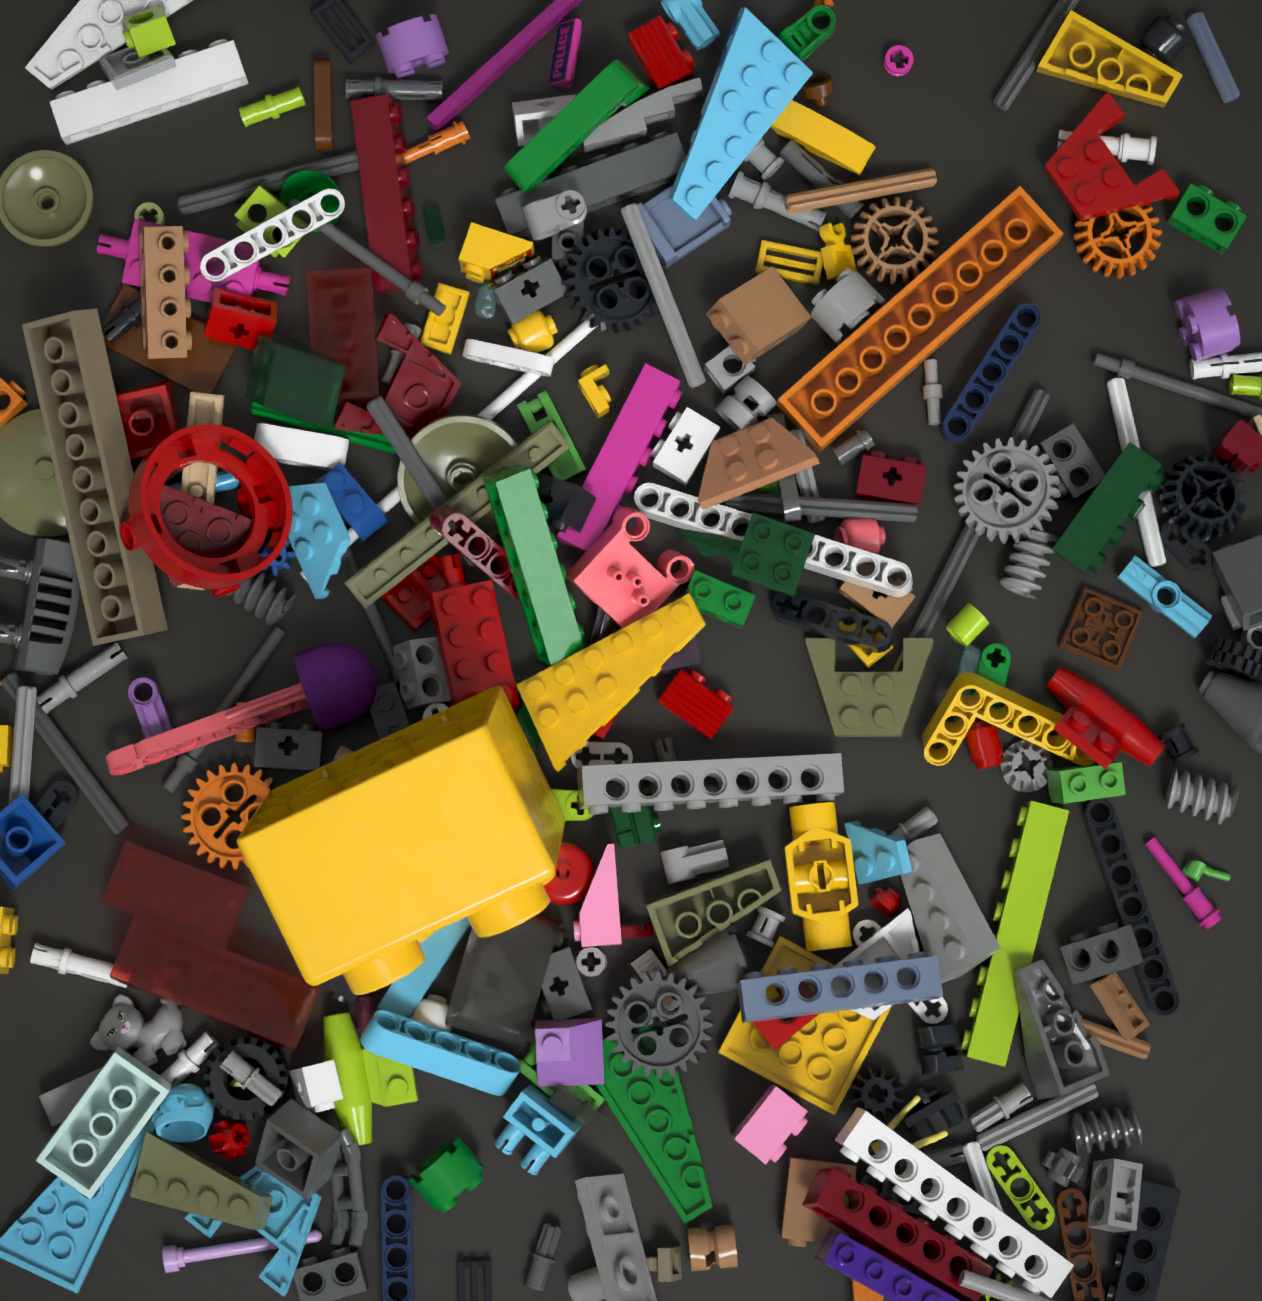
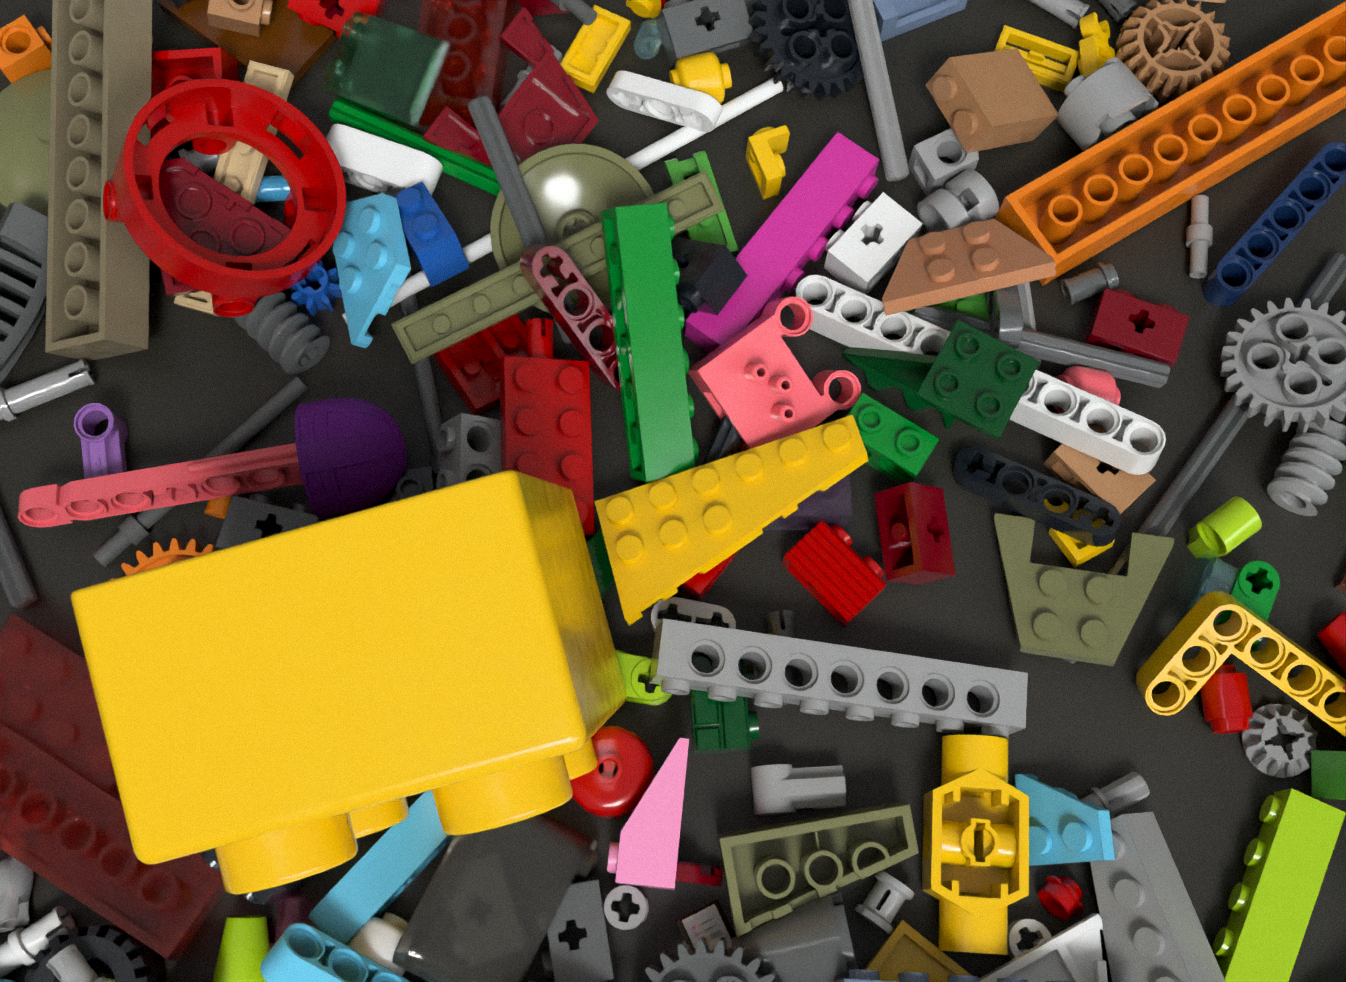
camera: 10 degrees right, 10 degrees down
(749, 666) = (914, 534): none -> dark red brick

